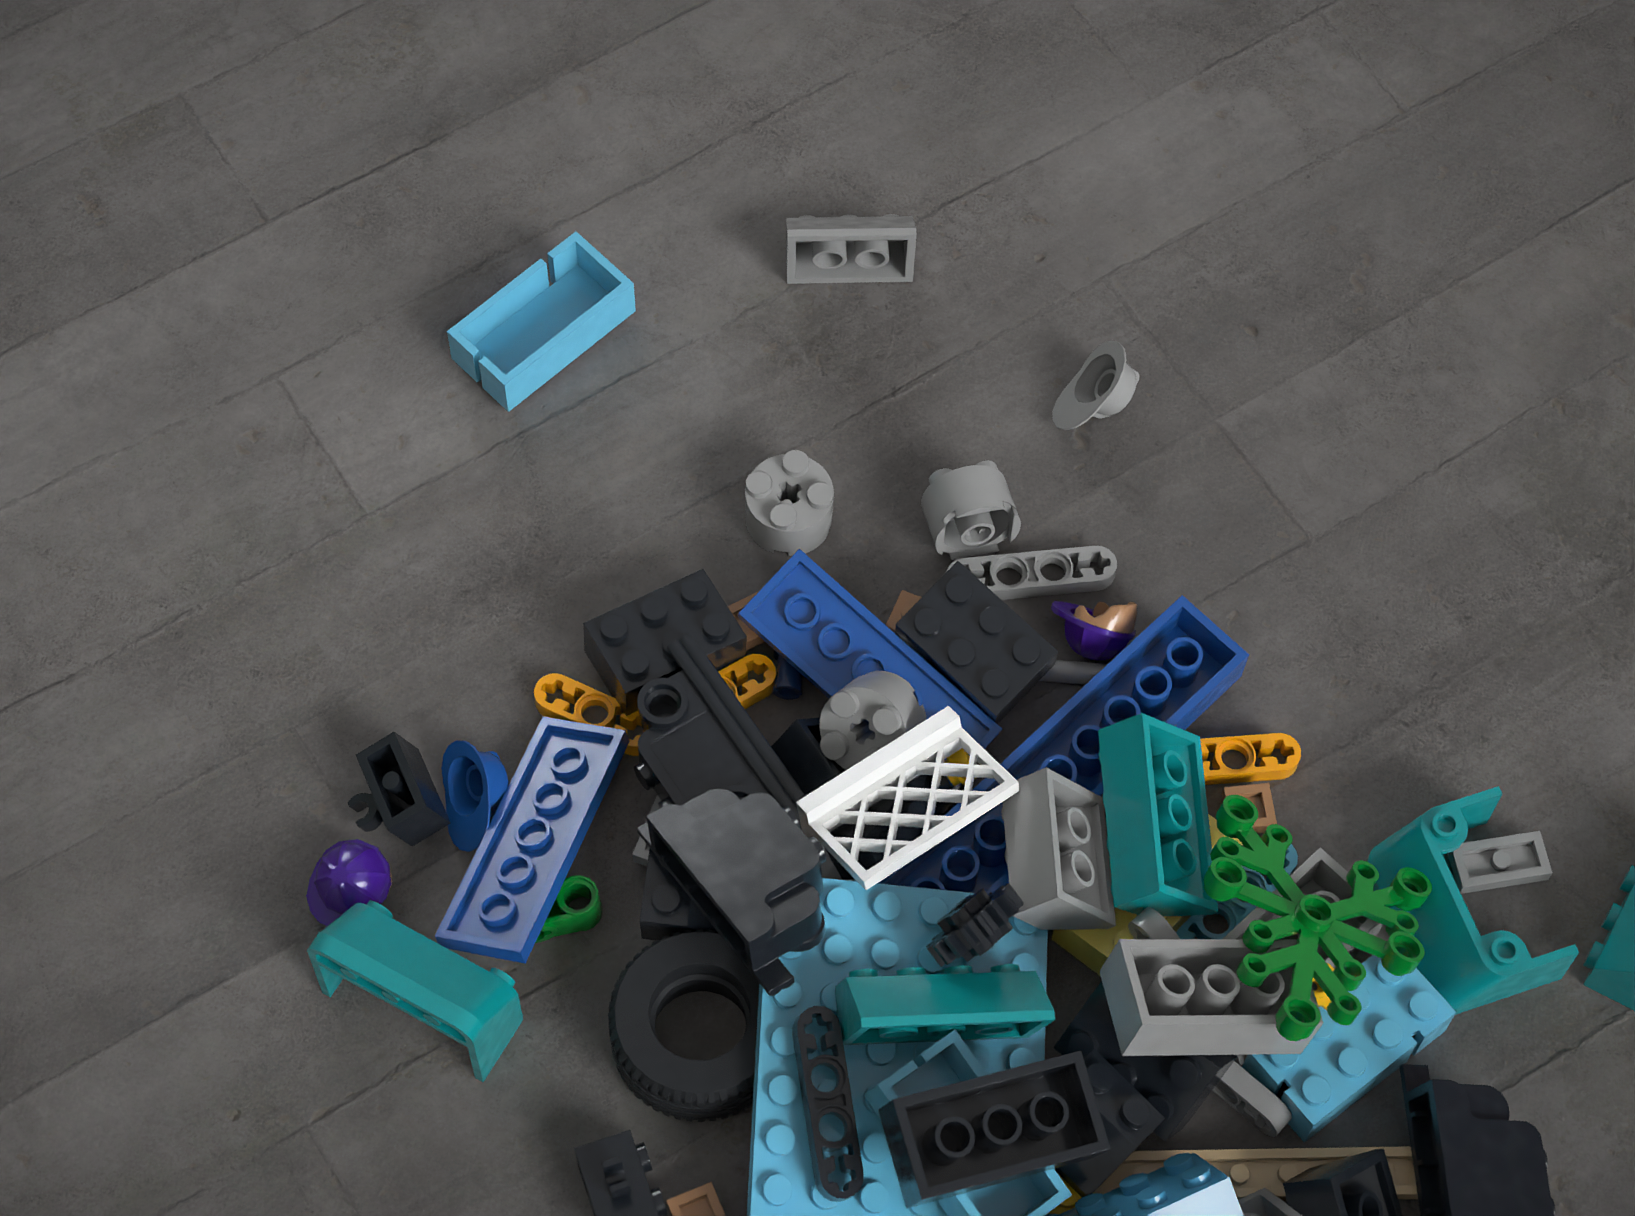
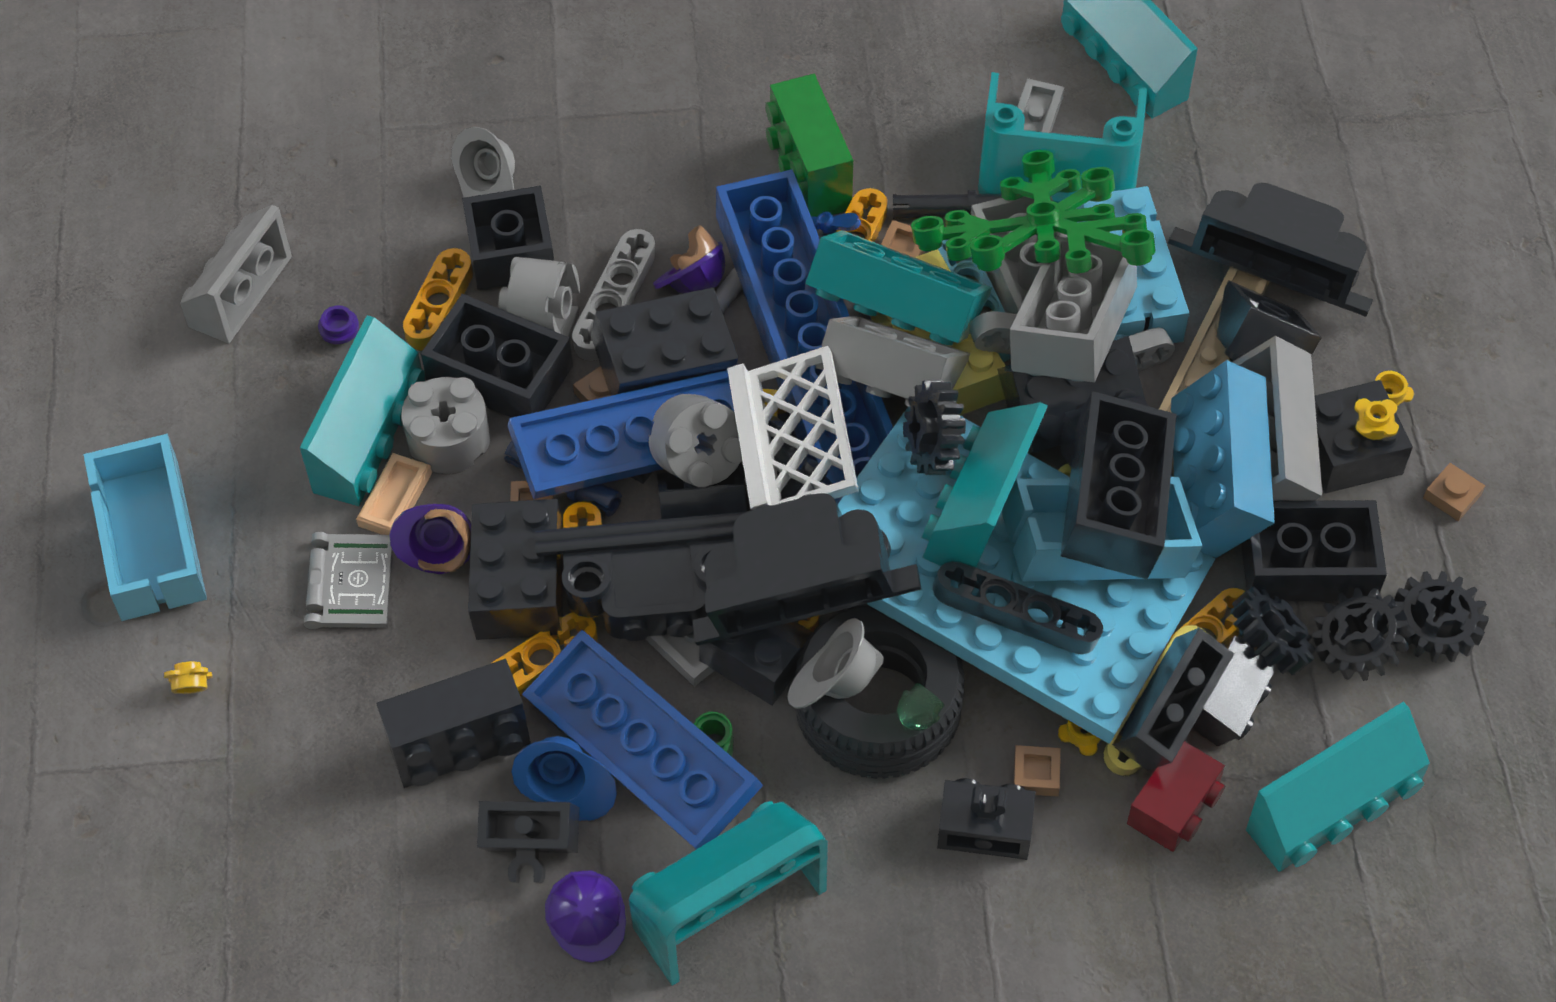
camera: 60 degrees left, 5 degrees down
(418, 439) = (188, 677): none -> yellow plate
(470, 674) = (454, 723): none -> black brick
(590, 515) = (349, 581): none -> light grey piece
(657, 553) = (432, 538): none -> dark purple piece
(668, 967) = (838, 668): none -> light grey piece
(668, 1062) = (919, 708): none -> clear green plate
(698, 504) = (393, 493): none -> light nougat tile
(745, 423) = (360, 414): none -> slope
(853, 359) = (338, 325): none -> dark purple plate
(882, 510) = (504, 355): none -> black brick
(921, 440) = (434, 283): none -> light orange beam
(1030, 444) = (505, 228): none -> black brick
(1229, 725) = (830, 223): none -> blue piece
(1301, 659) = (810, 144): none -> green brick
(1321, 820) = (937, 205): none -> black pin

